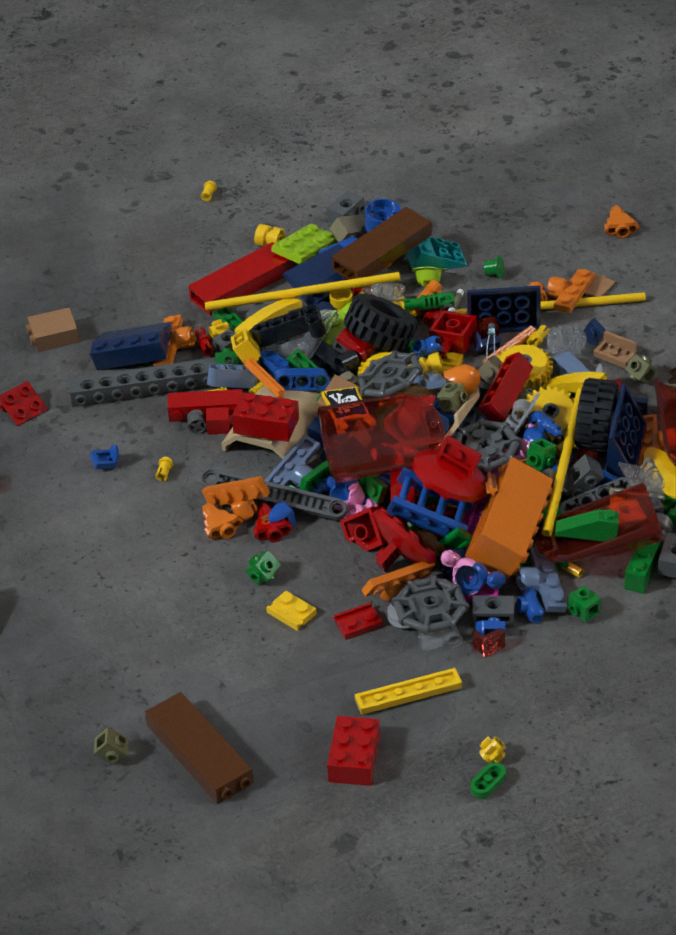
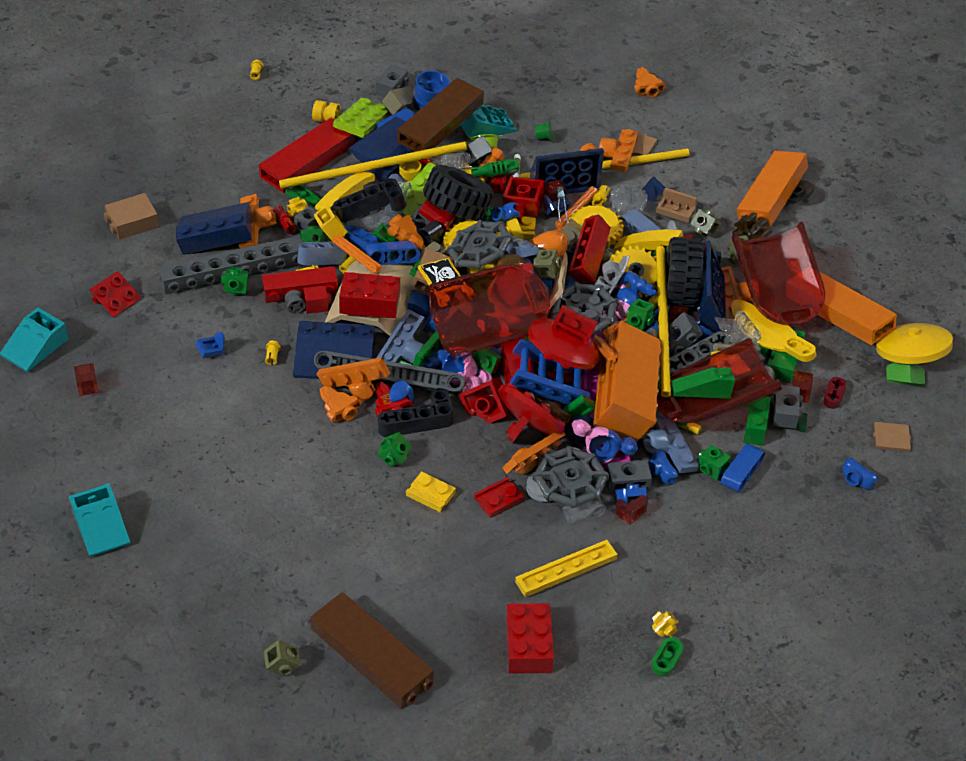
camera: 15 degrees left, 5 degrees up
(141, 397) = (235, 281): none -> green brick
(227, 457) = (333, 337): none -> dark blue slope
(295, 540) = (418, 418): none -> black beam
(320, 357) = (405, 230): none -> orange rock
(414, 283) = (477, 150): none -> brick
(614, 612) = (742, 468): none -> blue beam

